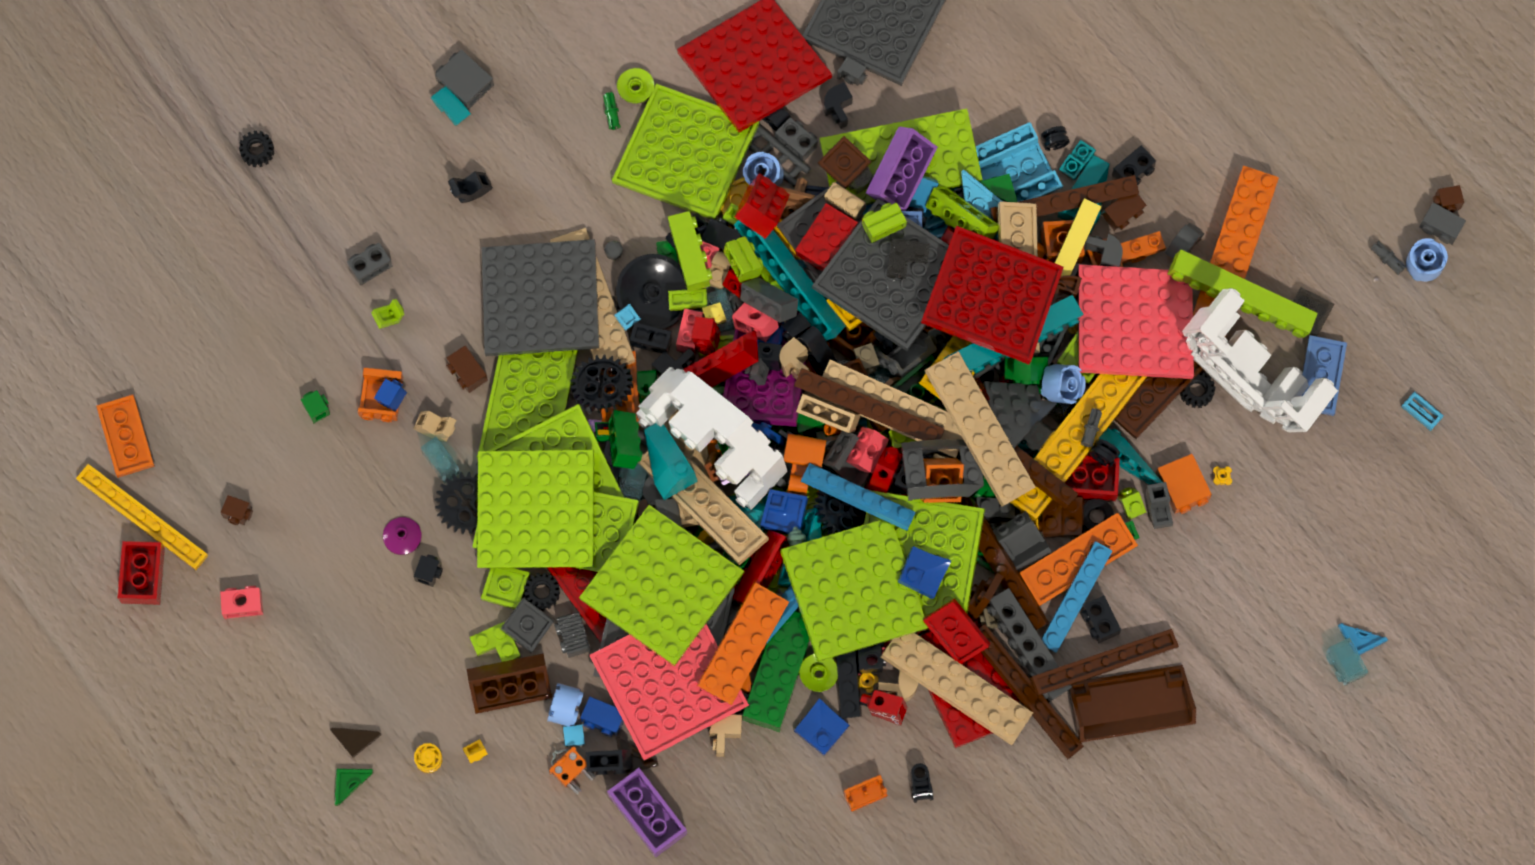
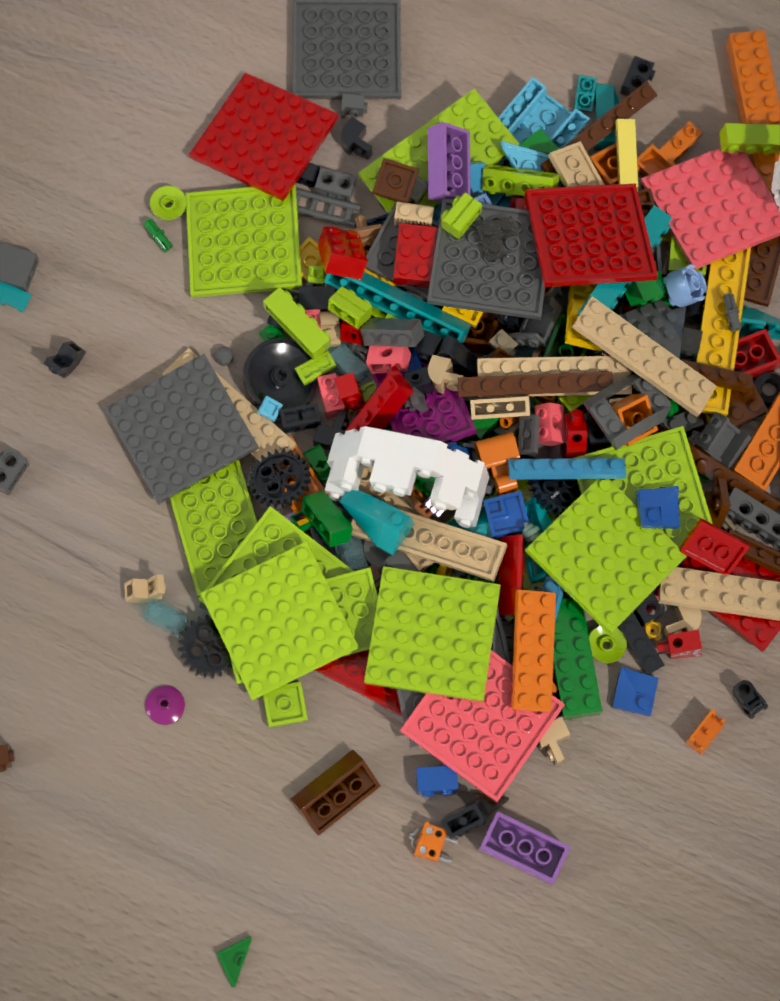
camera: 30 degrees left, 0 degrees up
(252, 607) = (59, 840): coral brick -> none
(315, 405) = (23, 624): green brick -> none
(355, 740) = (219, 917): dark brown tile -> none
(372, 382) = (79, 585): orange panel -> none
(388, 315) = (49, 508): lime bracket -> none
(390, 394) = (89, 580): blue brick -> none
(428, 570) = (206, 725): black brick -> none
(428, 758) = (296, 899): yellow wheel -> none
(467, 369) = (146, 524): reddish brown brick -> none
(475, 751) = (337, 871): yellow plate -> none
(495, 638) = (303, 755): lime plate -> none
(527, 625) = (323, 730): dark grey tile -> none
(542, 580) = (320, 705): black tyre -> none
(564, 705) = (397, 787): light blue brick -> none
(573, 634) = (369, 718): dark grey brick -> none
(574, 736) = (418, 811): medium azure tile -> none
(715, 312) = (346, 366): light yellow plate -> none
(760, 161) = (320, 215): light blue brick -> none
(1055, 138) = (558, 83): black wheel -> none
(1104, 452) = (753, 329): black wheel -> none
(1110, 248) = (659, 154): dark grey brick -> none
(1123, 210) = (648, 118): reddish brown brick -> none
(1185, 240) = (715, 120): dark grey brick -> none

